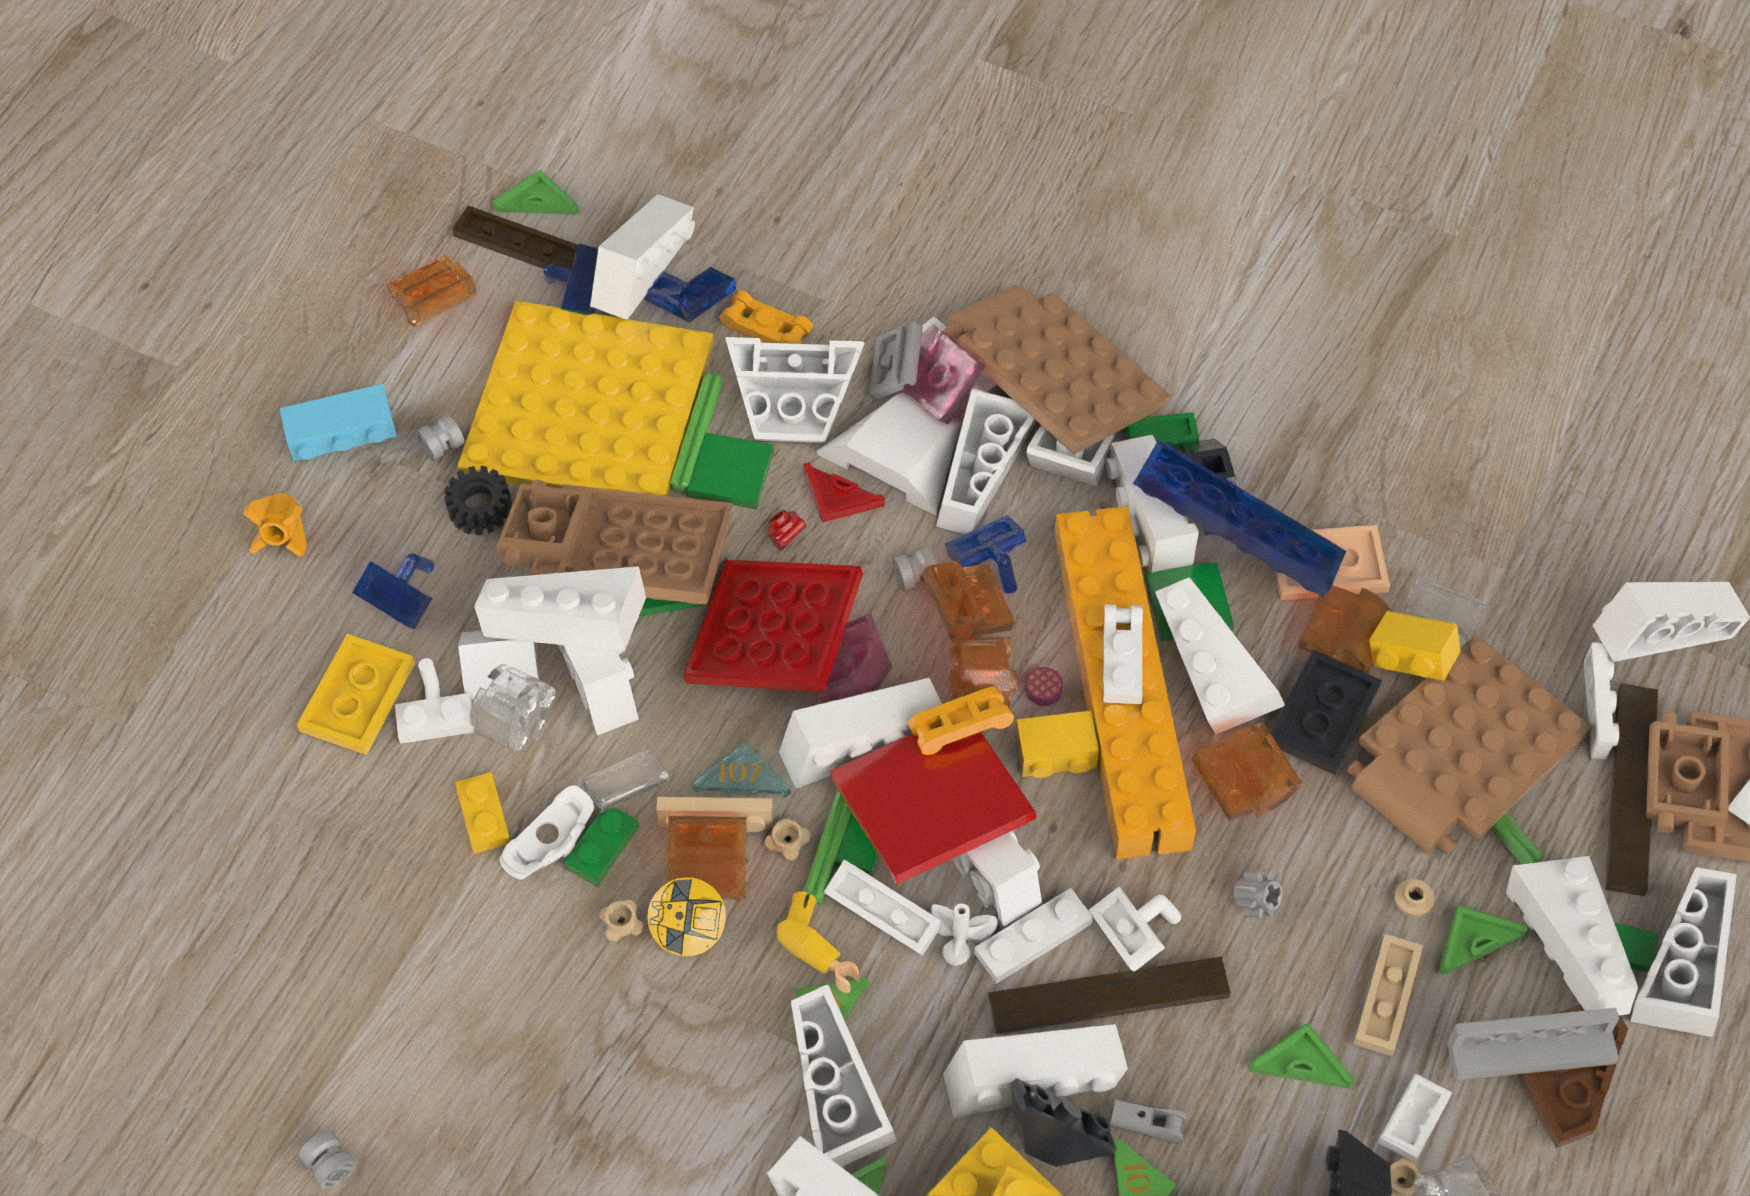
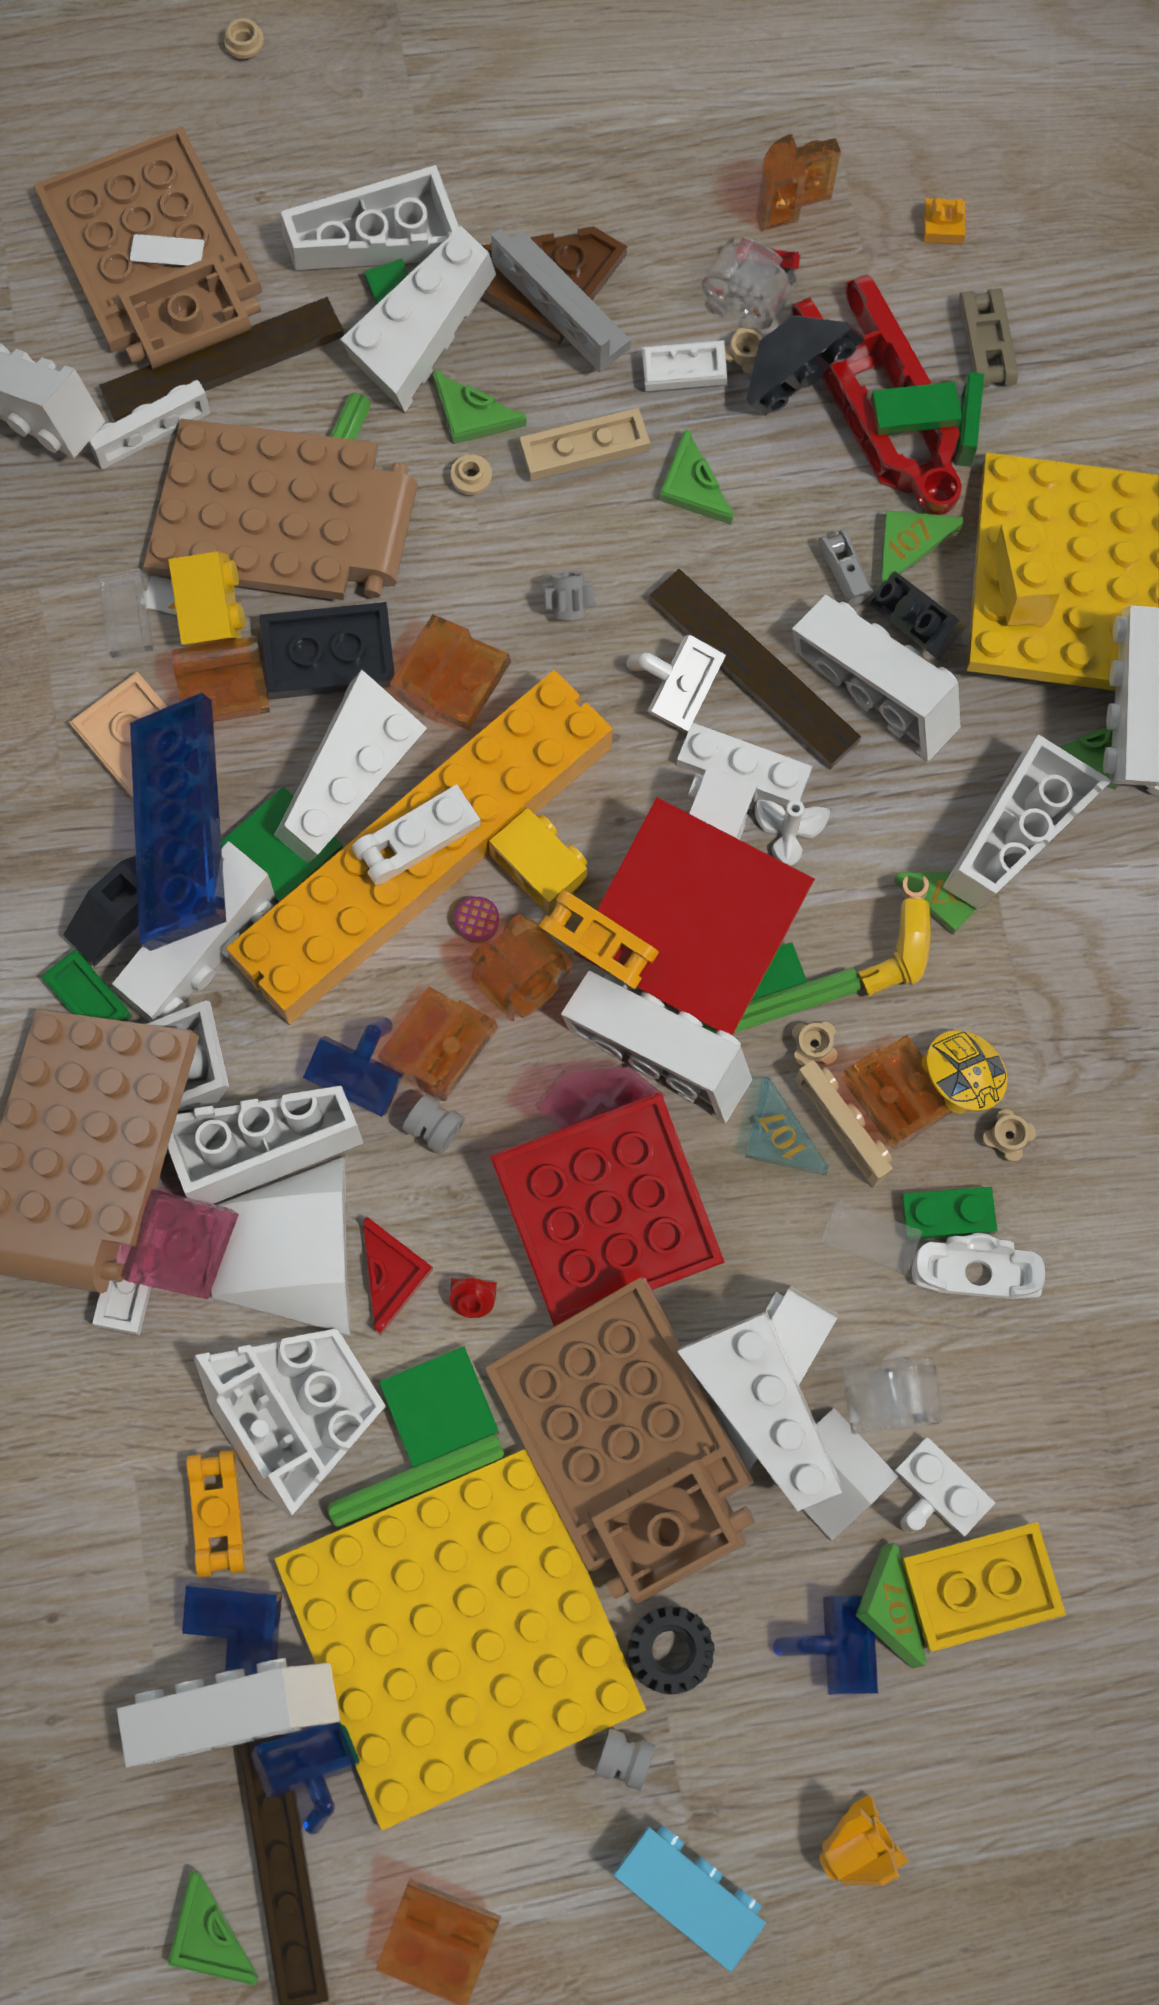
camera: 130 degrees left, 15 degrees up
(393, 629) = (889, 1607): none -> bright green tile
(482, 812) = (1004, 1354): yellow plate -> none
(883, 907) = (823, 910): white plate -> none
(895, 360) = (181, 1322): light grey plate -> none

